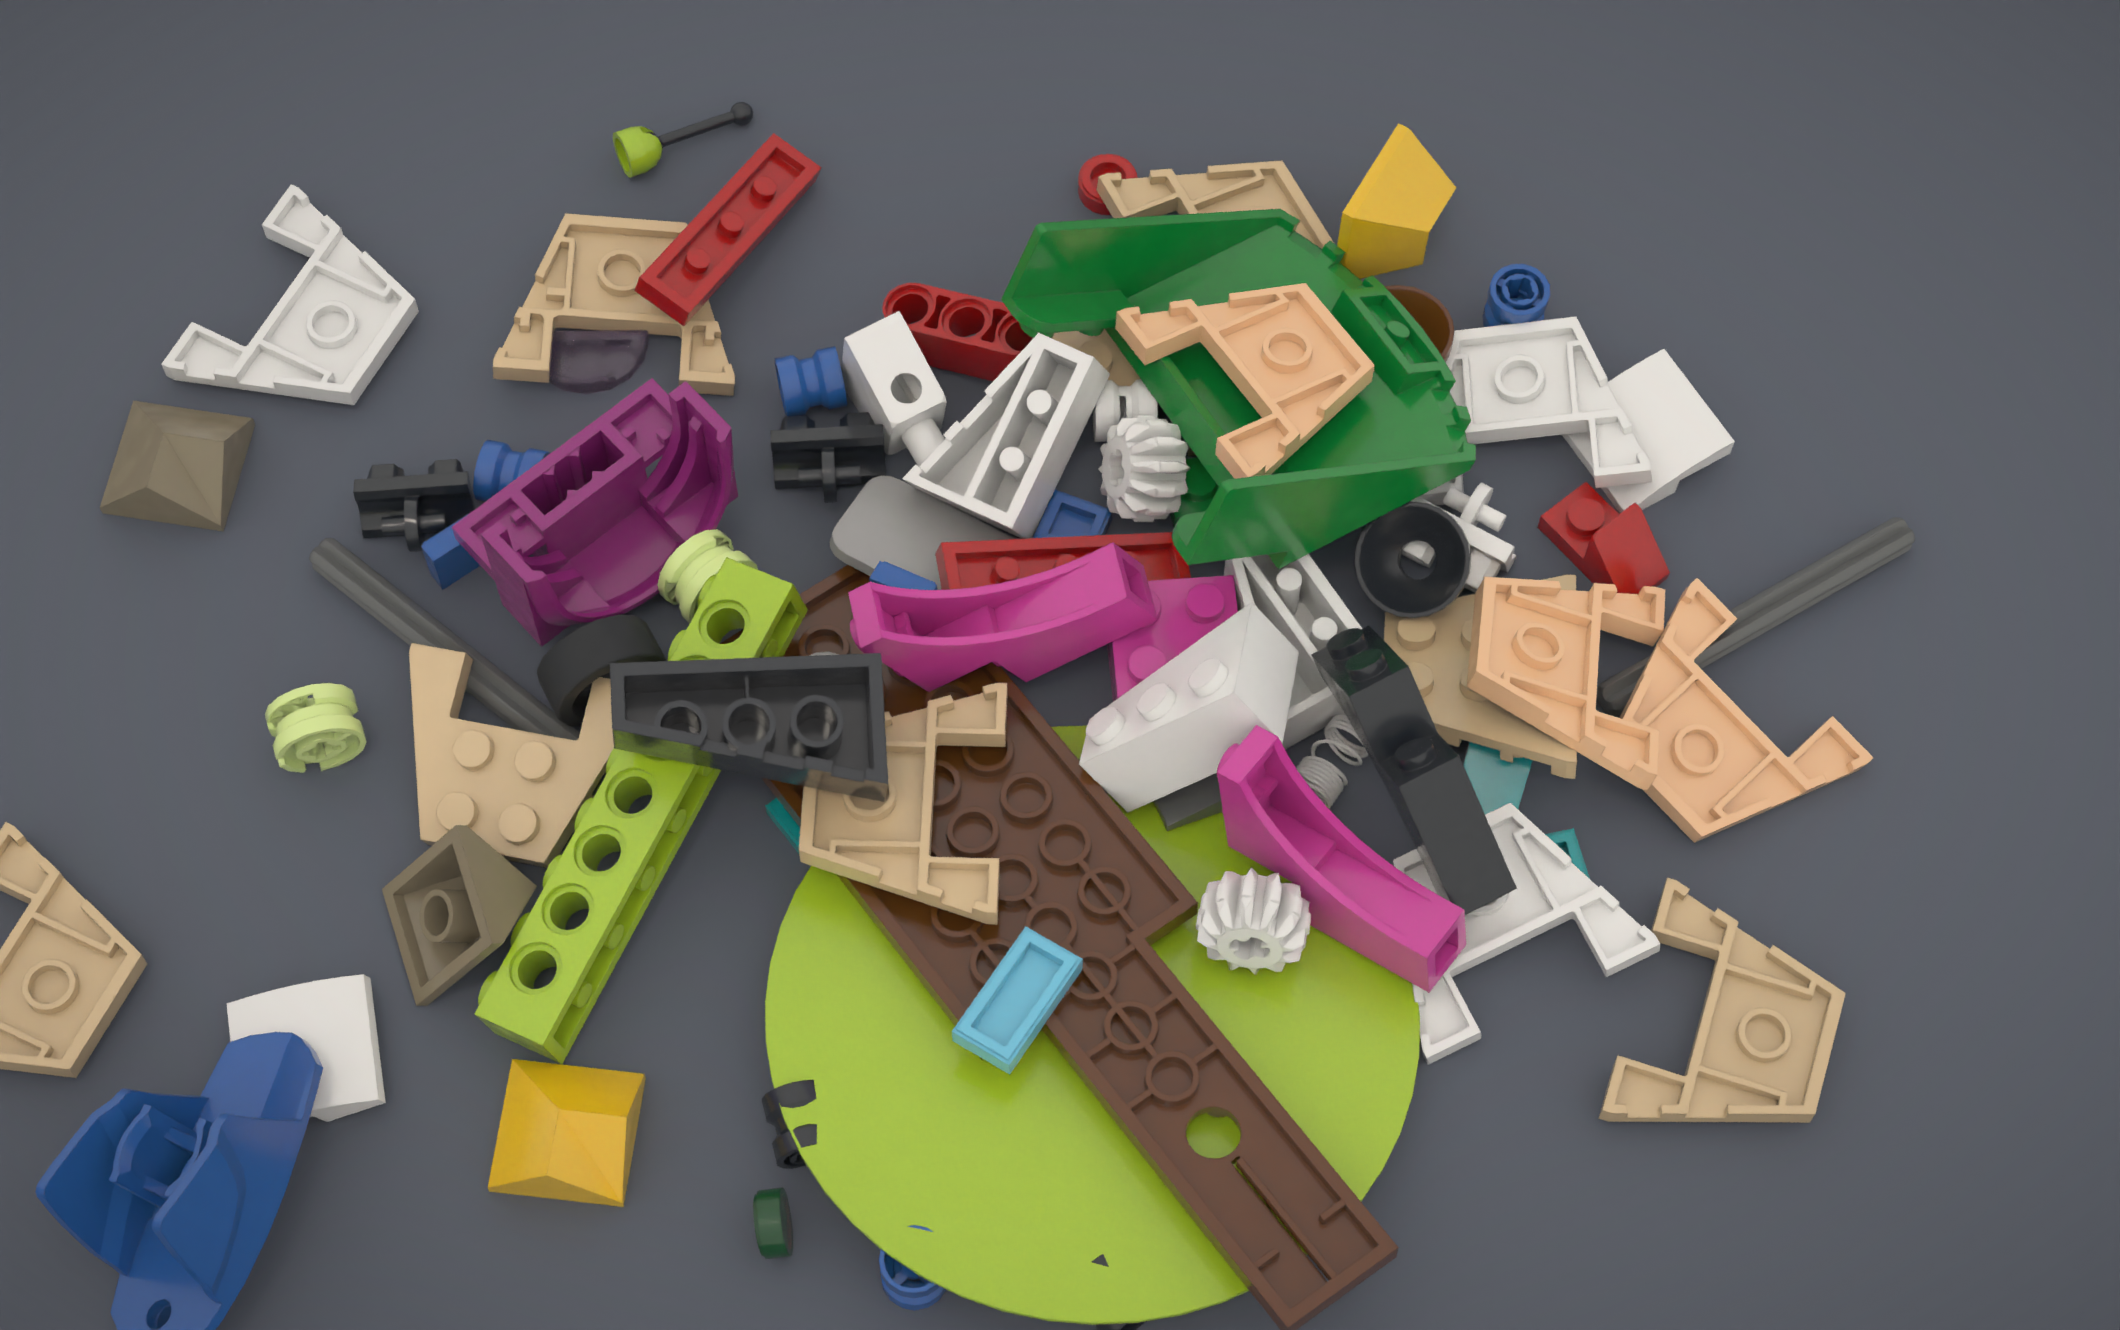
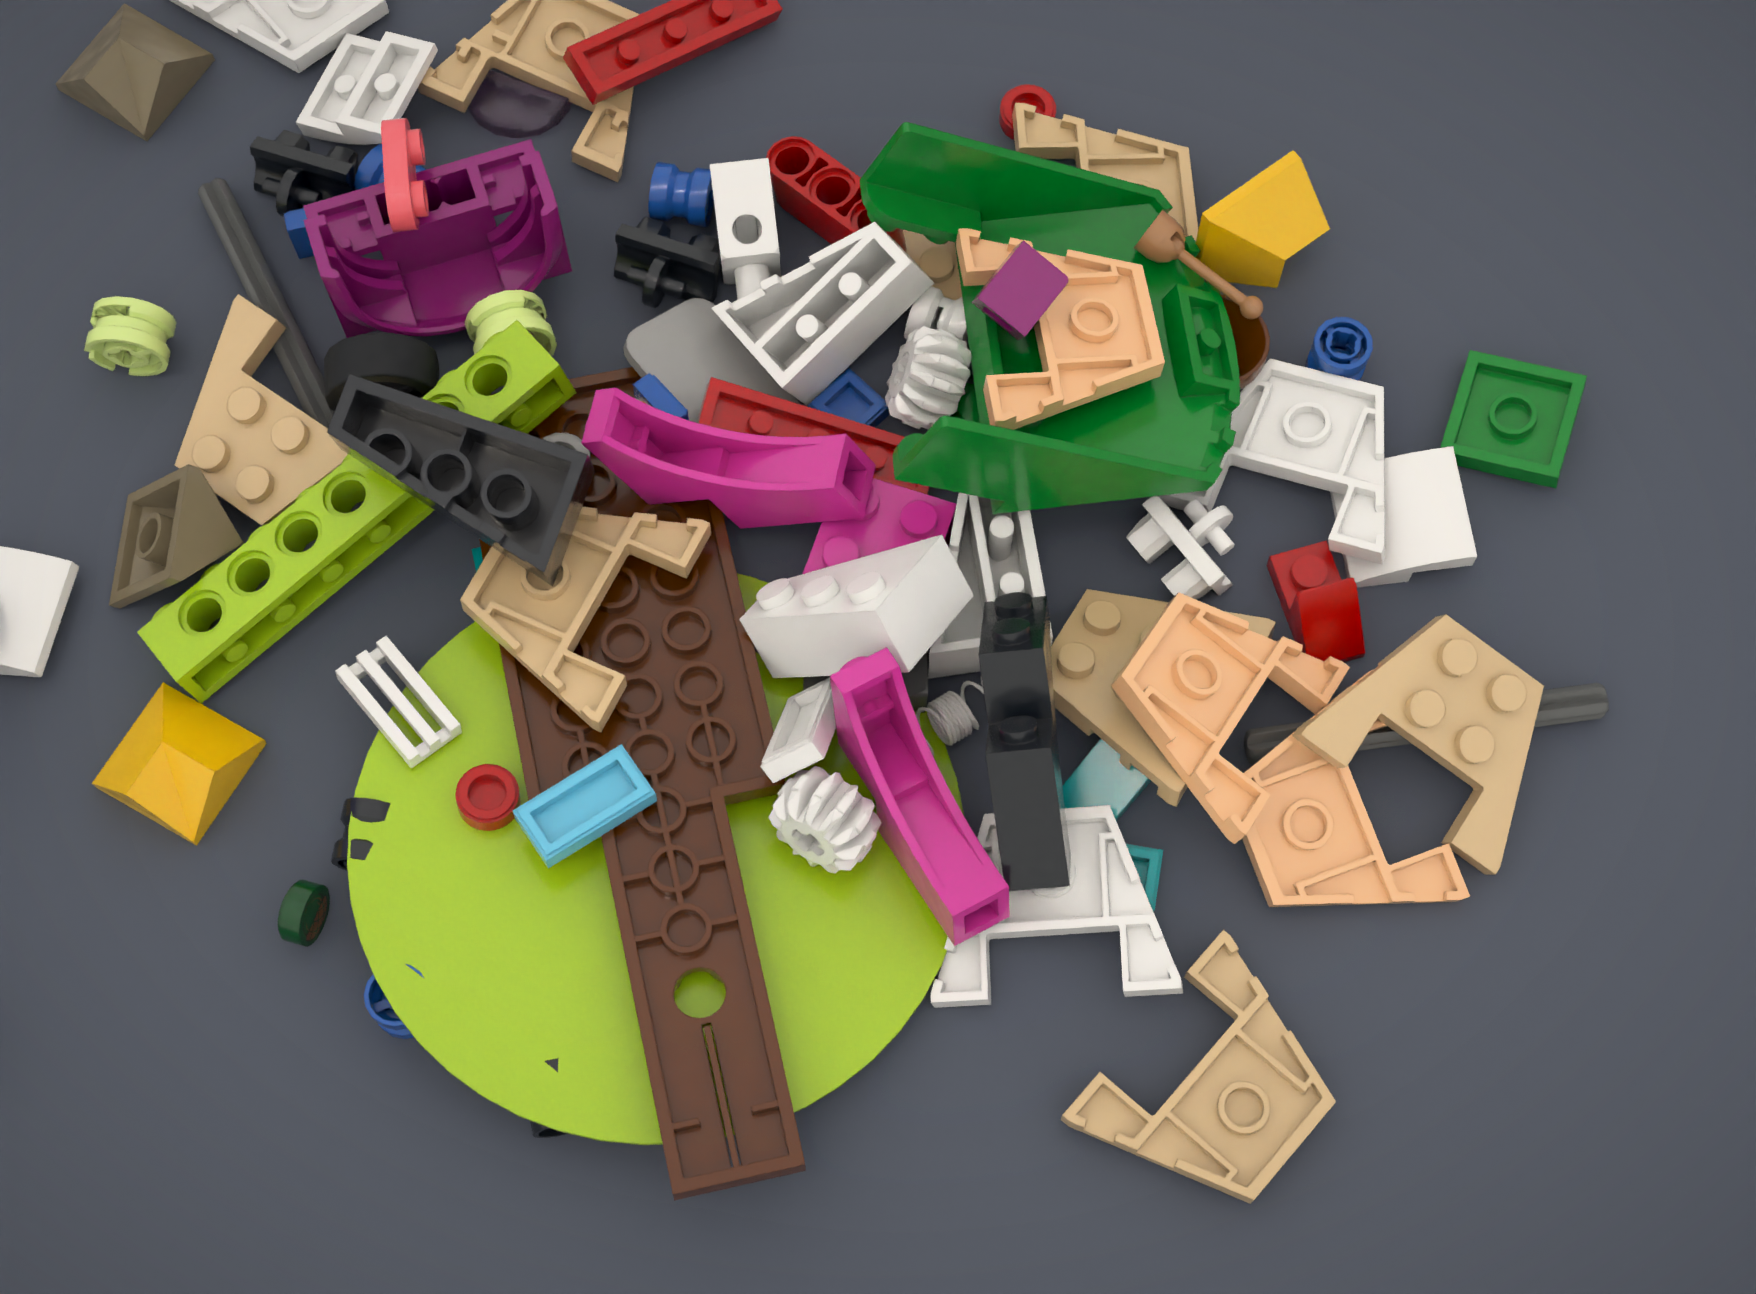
camera: 25 degrees right, 5 degrees up
(440, 394) = (364, 86): none -> white slope
(537, 438) = (404, 195): none -> coral plate
(786, 956) = (370, 664): none -> white tile
(909, 1034) = (487, 797): none -> red tile
(1193, 843) = (801, 732): none -> white tile
(1209, 347) = (1020, 290): none -> magenta panel
(1312, 254) = (1166, 242): none -> medium nougat hinge
(1380, 566) = (1098, 547): black piece -> none
(1702, 302) = (1513, 418): none -> green plate
(1789, 587) = (1457, 707): none -> tan wing

